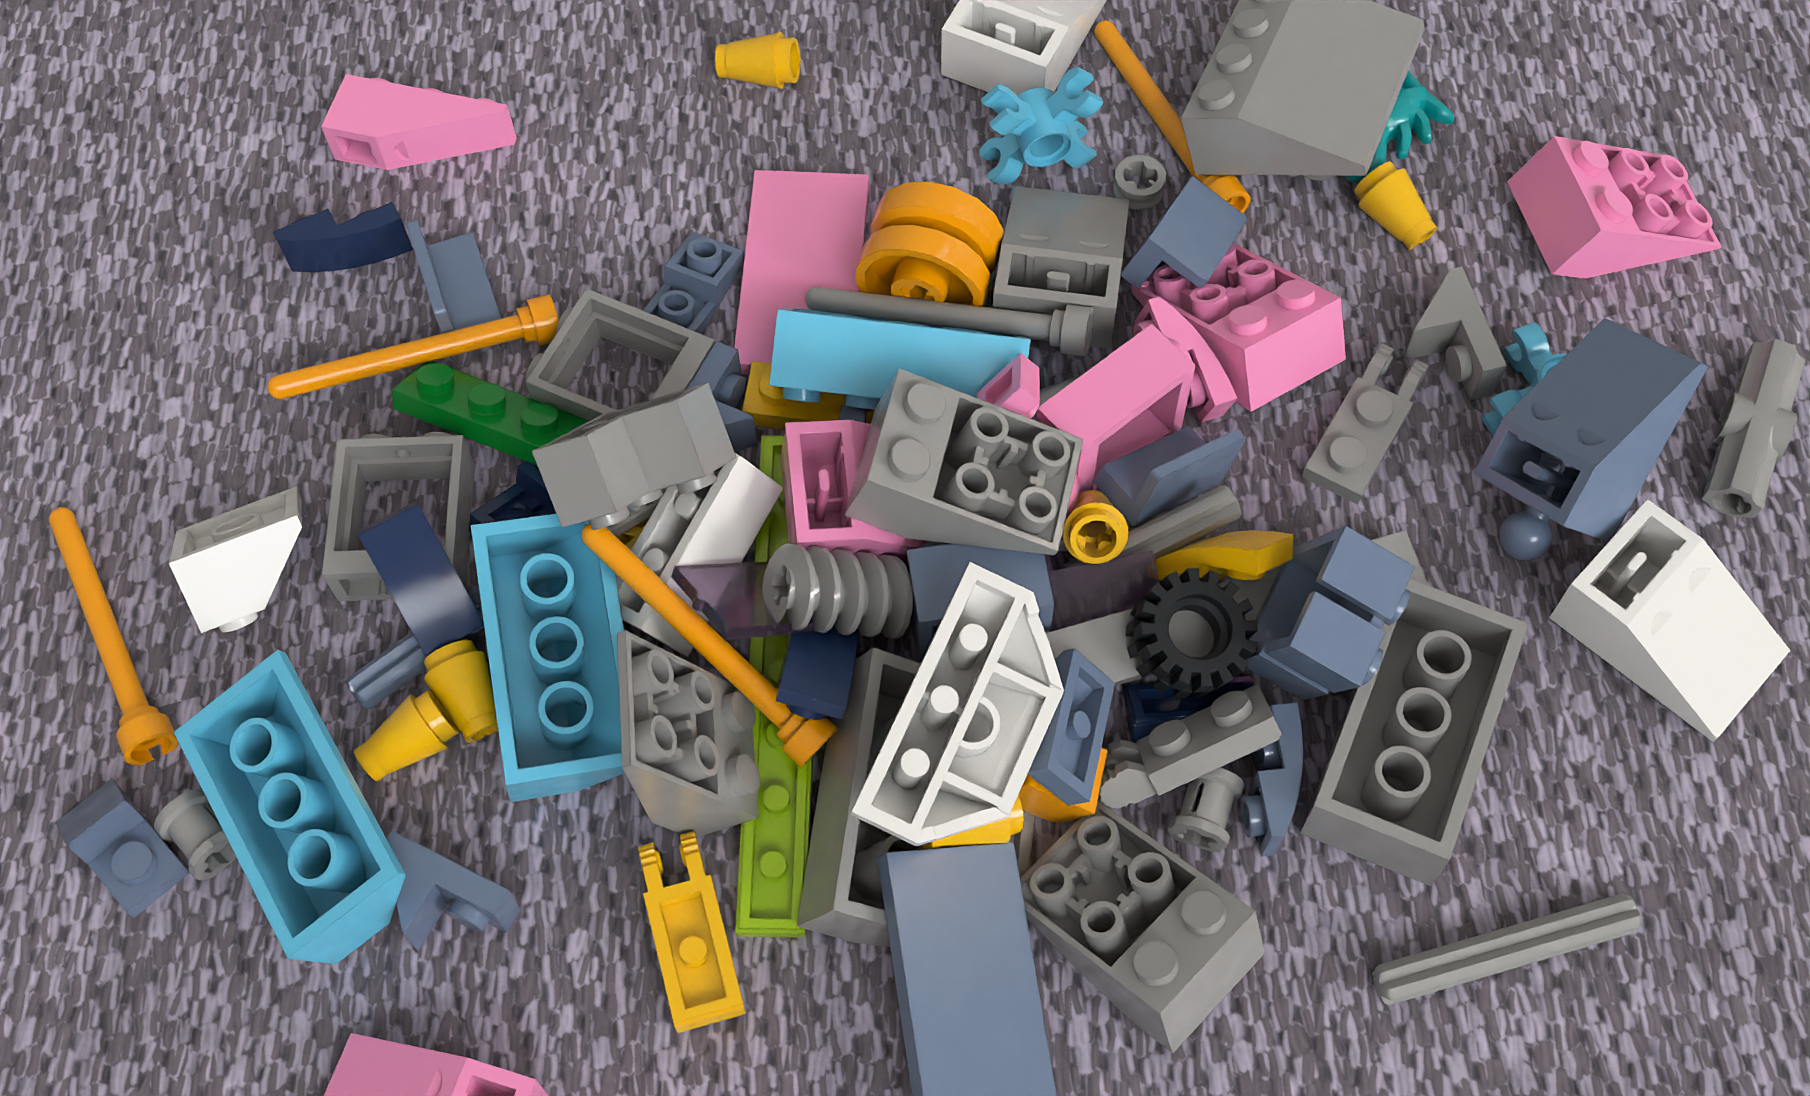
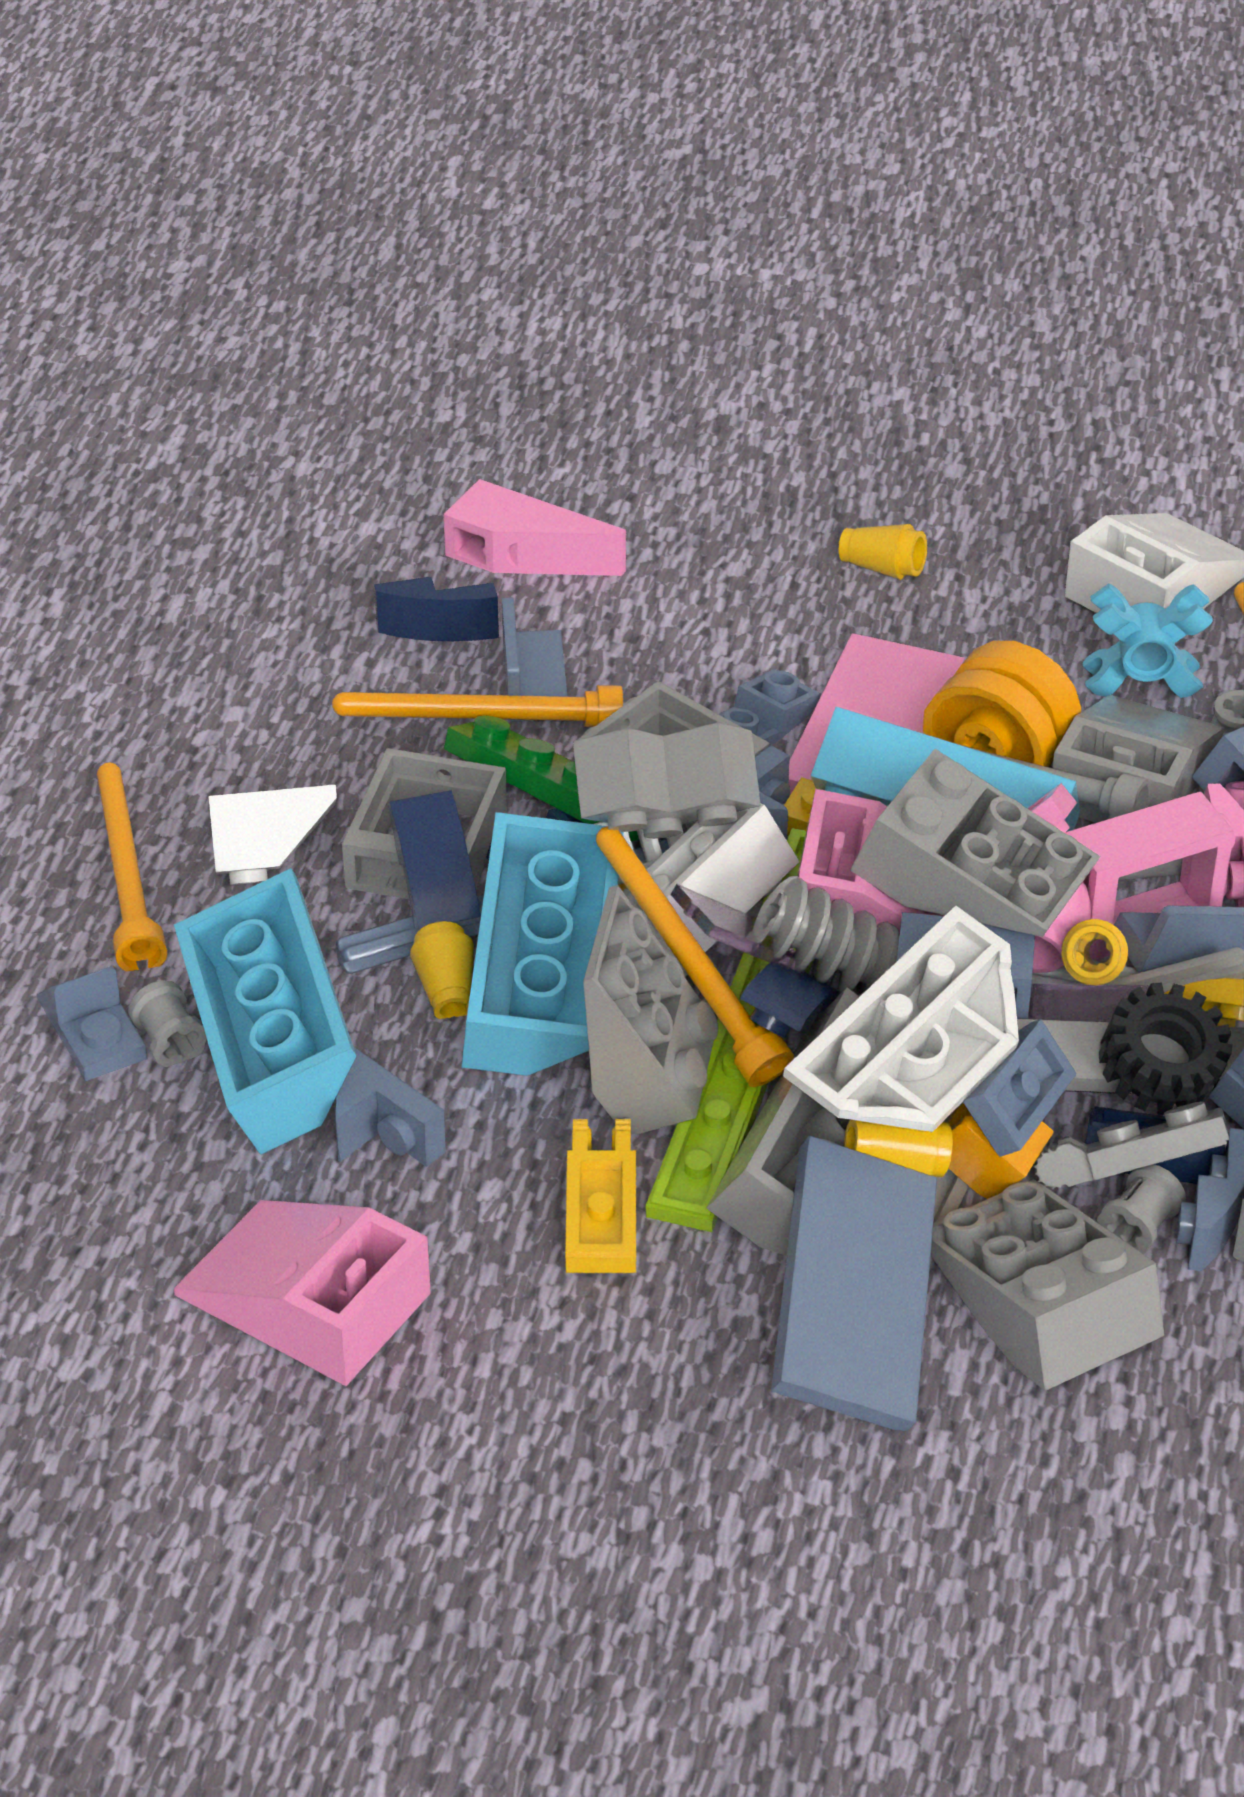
camera: 15 degrees right, 20 degrees down
(408, 735) = (383, 992): yellow cone -> none

